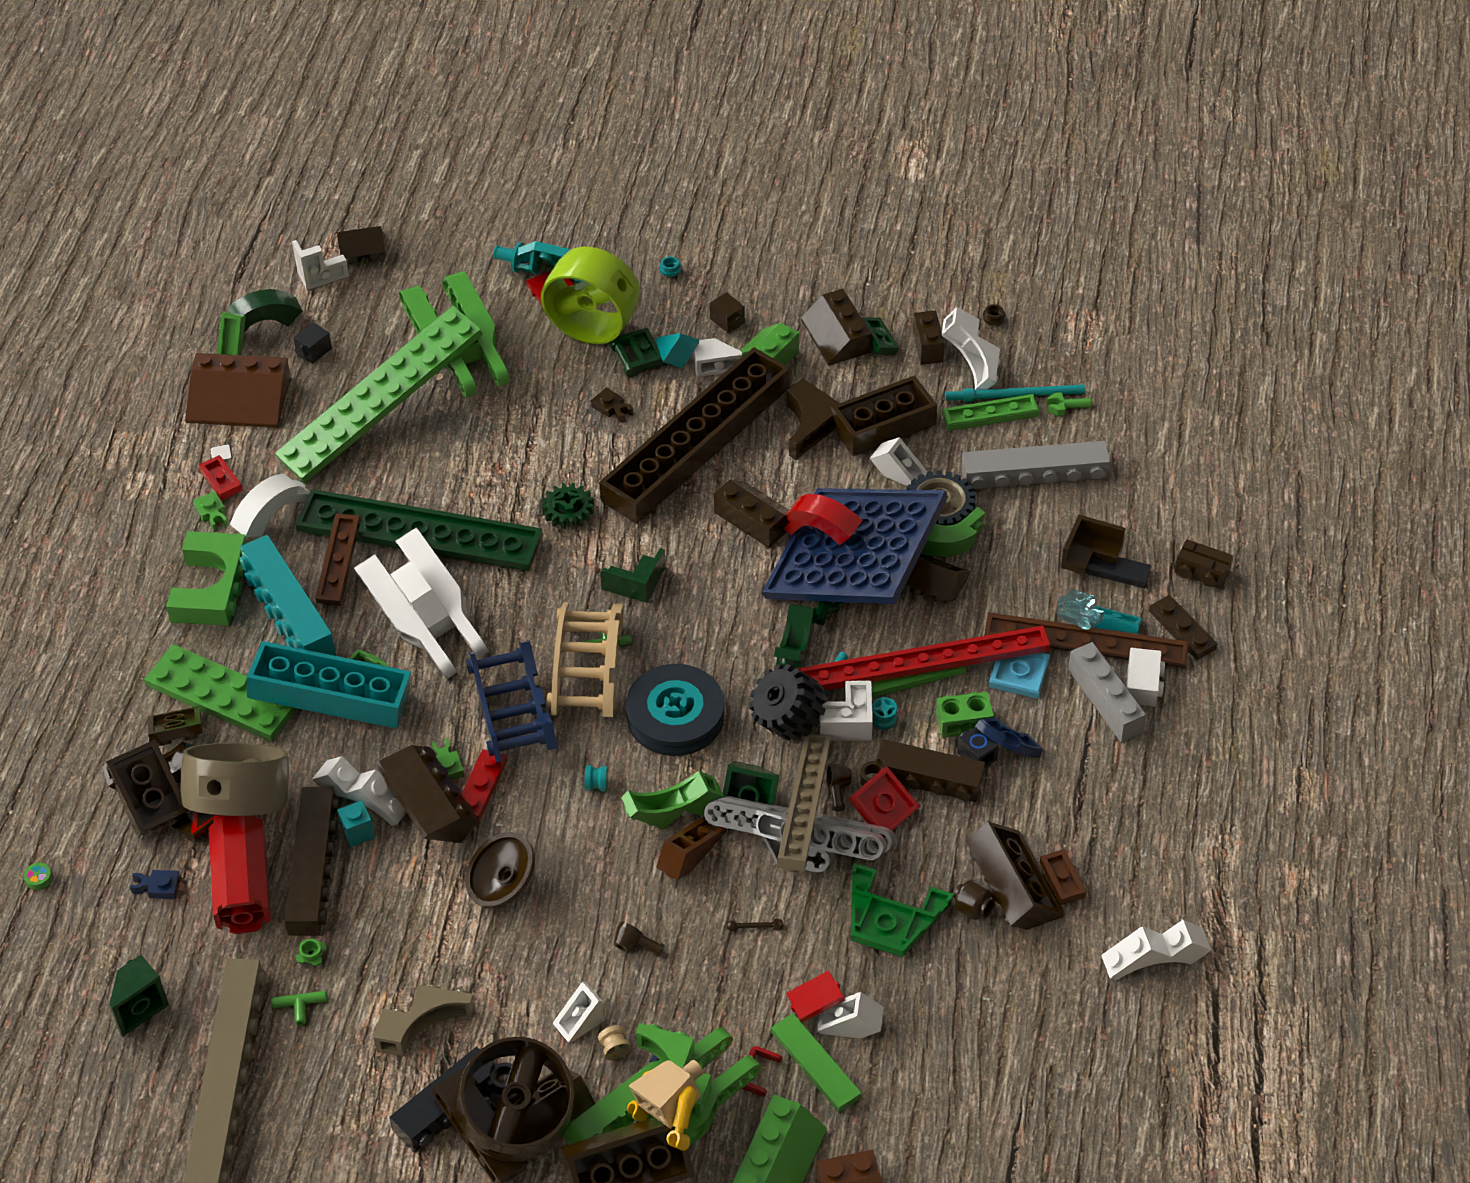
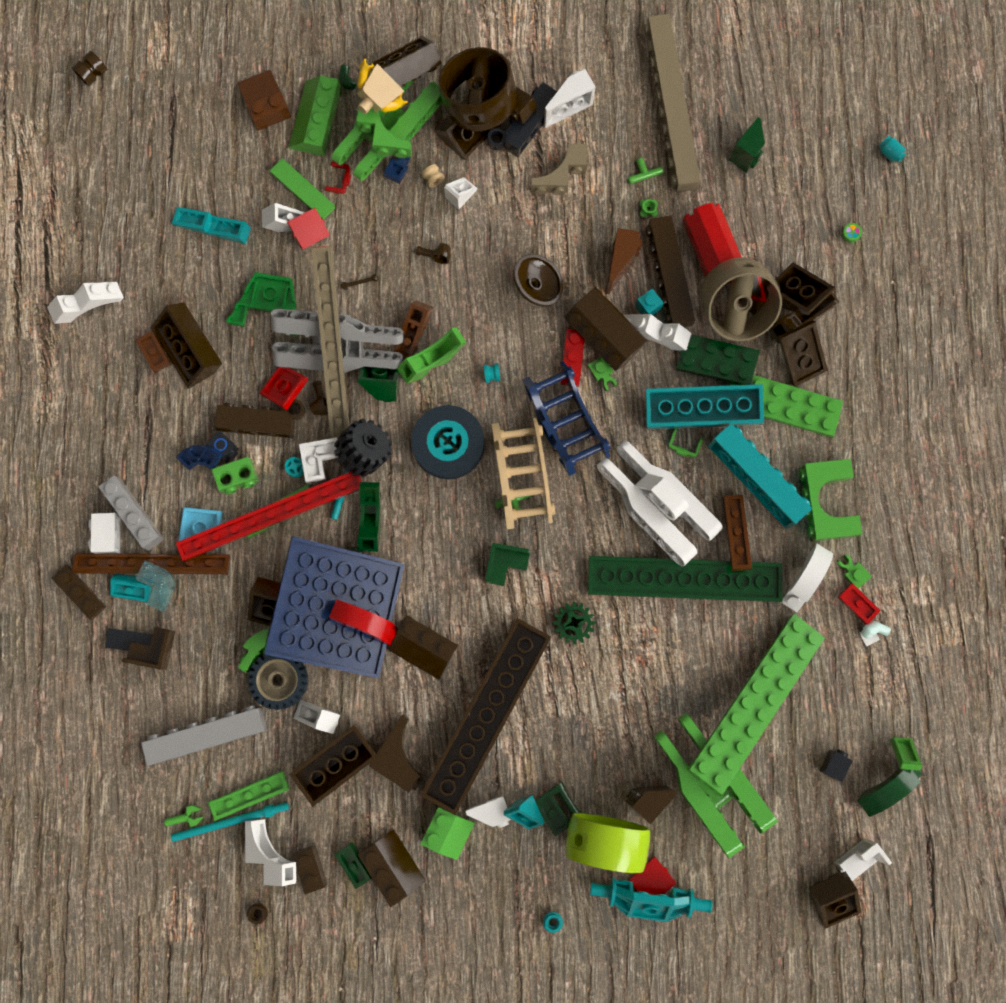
camera: 165 degrees right, 30 degrees up
(160, 885) = (767, 241): dark blue plate -> none
(209, 453) = (873, 628): none -> light aqua arm
(237, 390) = (879, 698): reddish brown slope -> none
(305, 746) = (718, 360): none -> dark green plate
(368, 1105) = (572, 97): none -> white slope
(374, 876) = (625, 249): none -> reddish brown slope
(531, 328) = (650, 800): none -> dark brown slope
(611, 403) = (568, 746): dark brown plate -> none
(727, 312) = (489, 869): dark brown brick -> none
(955, 1032) = (211, 225): none -> teal slope
(974, 900) = (211, 319): dark brown head -> none
(1203, 564) = (63, 654): dark brown brick -> none

